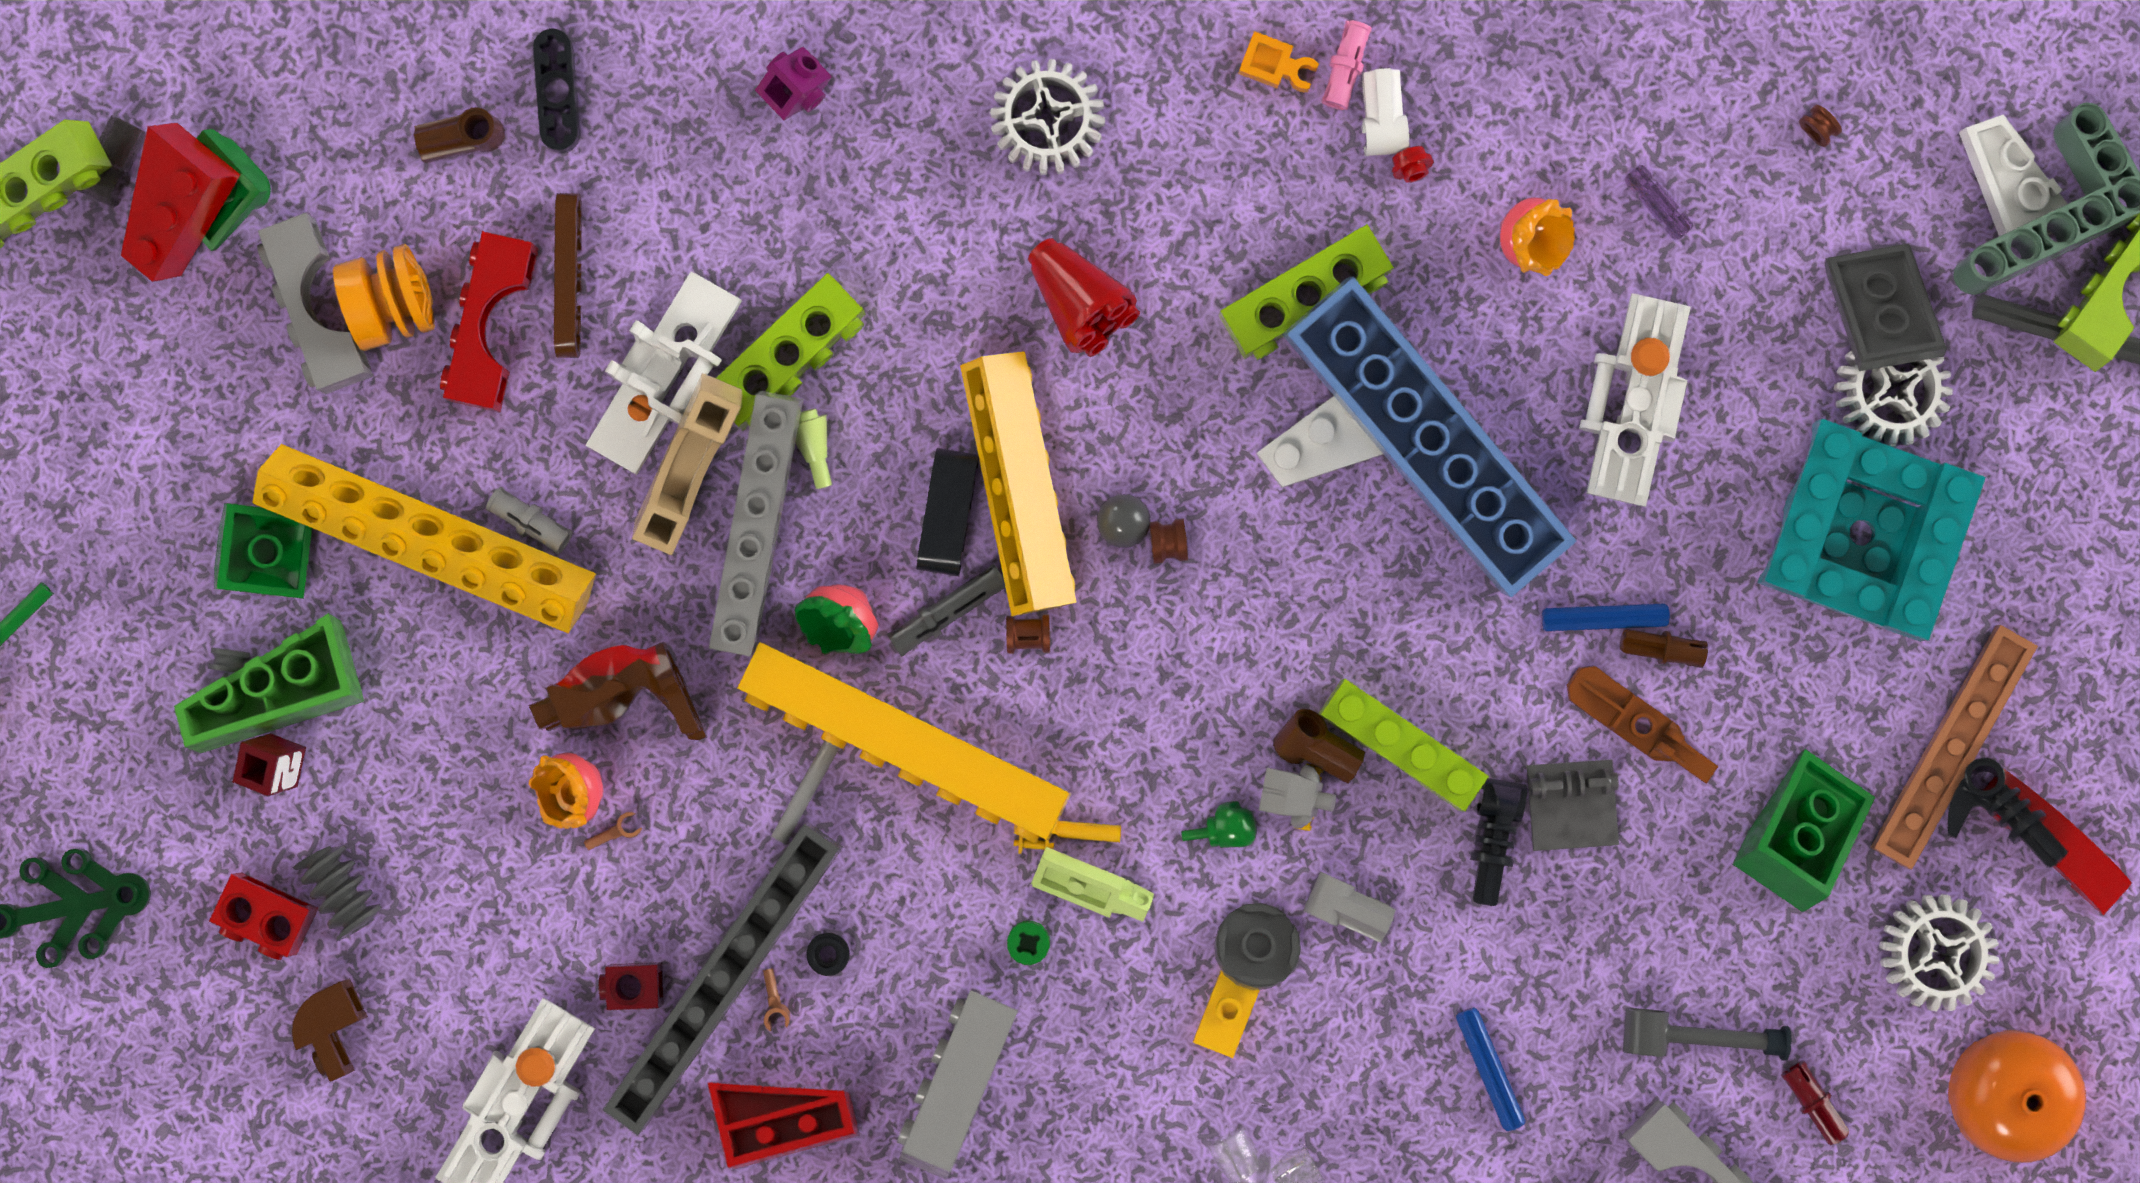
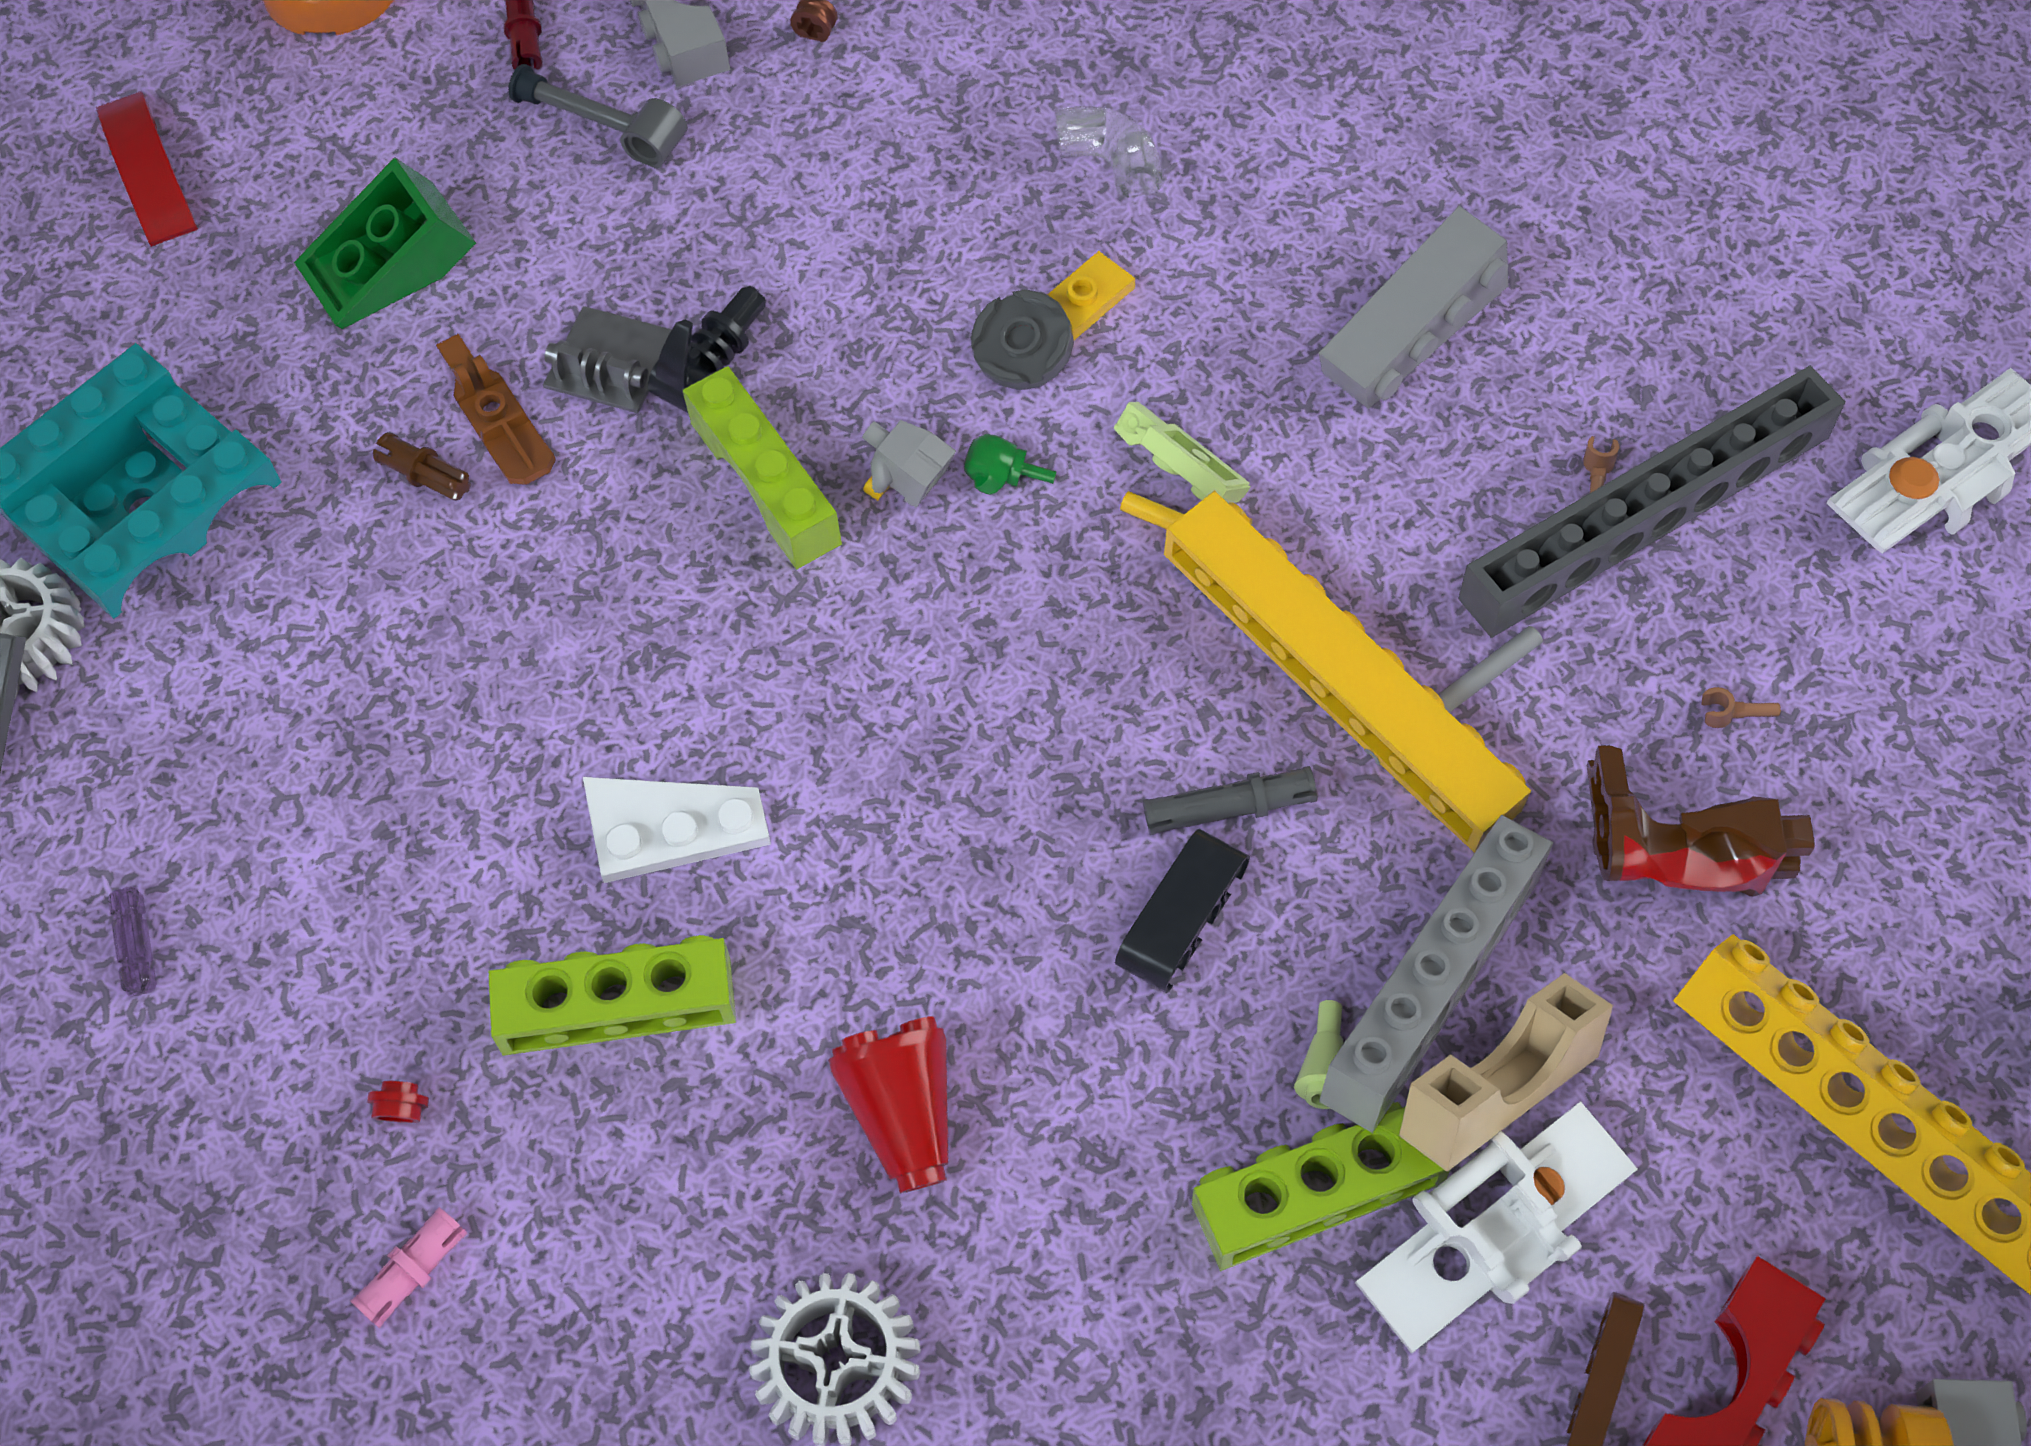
camera: 160 degrees left, 25 degrees down
(529, 520) = (1744, 1107): light grey pin -> none
(566, 790) = (1785, 758): light orange hair -> none
(651, 983) = (1766, 515): dark red brick -> none
(778, 1121) = (1633, 343): red wedge -> none
(818, 964) = (1519, 482): black plate -> none
(837, 619) = (1369, 835): green hair -> none
(1018, 483) = (1078, 907): yellow brick -> none
(1028, 634) = (1140, 736): copper bush -> none
(1030, 933) = (1268, 436): green wheel -> none
(1123, 520) = (968, 819): dark grey piece -> none
(1168, 541) = (924, 775): copper wheel -> none
(1270, 61) = (503, 1312): light orange plate -> none
(1308, 739) = (859, 503): reddish brown piece -> none
(1341, 904) = (909, 347): light grey piece -> none
(1384, 119) = (401, 1166): white piece -> none
(1429, 437) = (556, 763): medium blue brick -> none
(1490, 1069) = (830, 160): blue axle -> none
(1537, 235) = (298, 951): light orange hair -> none
(1605, 617) = (467, 522): blue axle -> none
(1652, 401) = (277, 708): white piece -> none
(1954, 746) = (181, 274): nougat plate -> none
(1955, 945) = (320, 104): white gear -> none
(2005, 803) = (165, 189): black piece -> none

